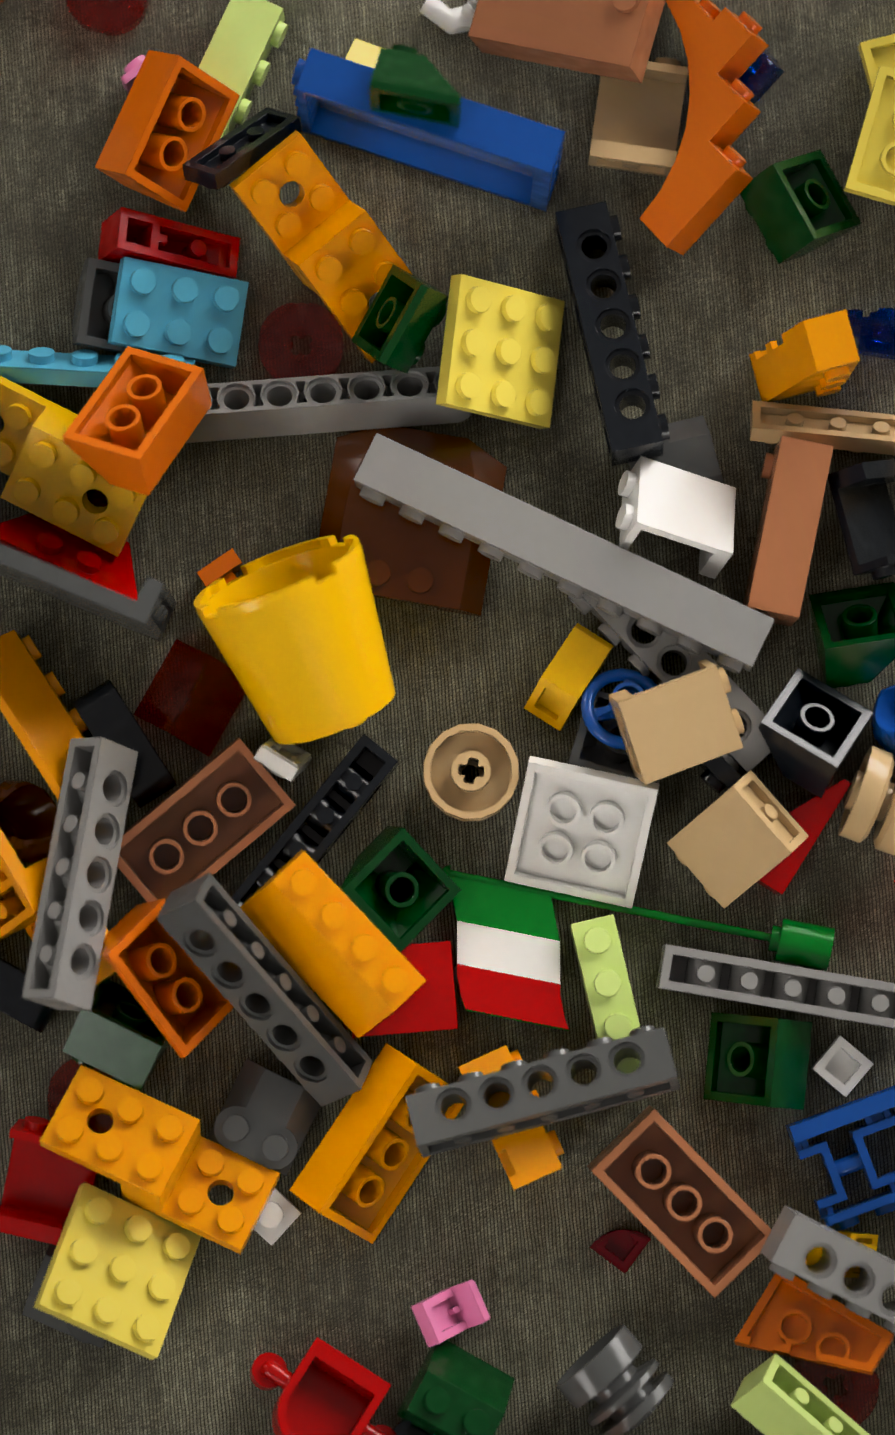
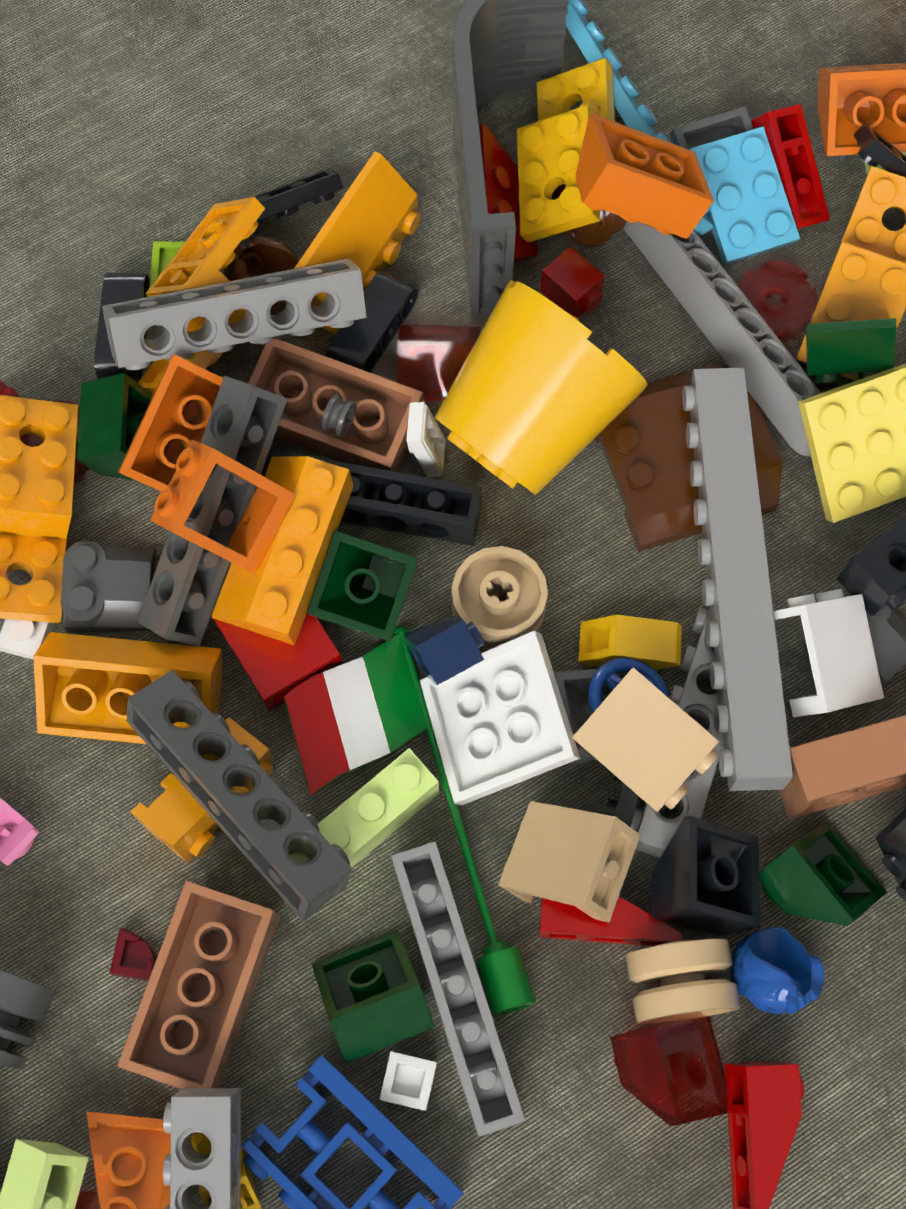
camera: 65 degrees right, 15 degrees down
(184, 528) = (572, 283): none -> red brick
(227, 828) = (339, 415): none -> dark grey bush
(311, 963) = (257, 524): none -> orange window
(498, 847) = (445, 648): none -> dark blue slope

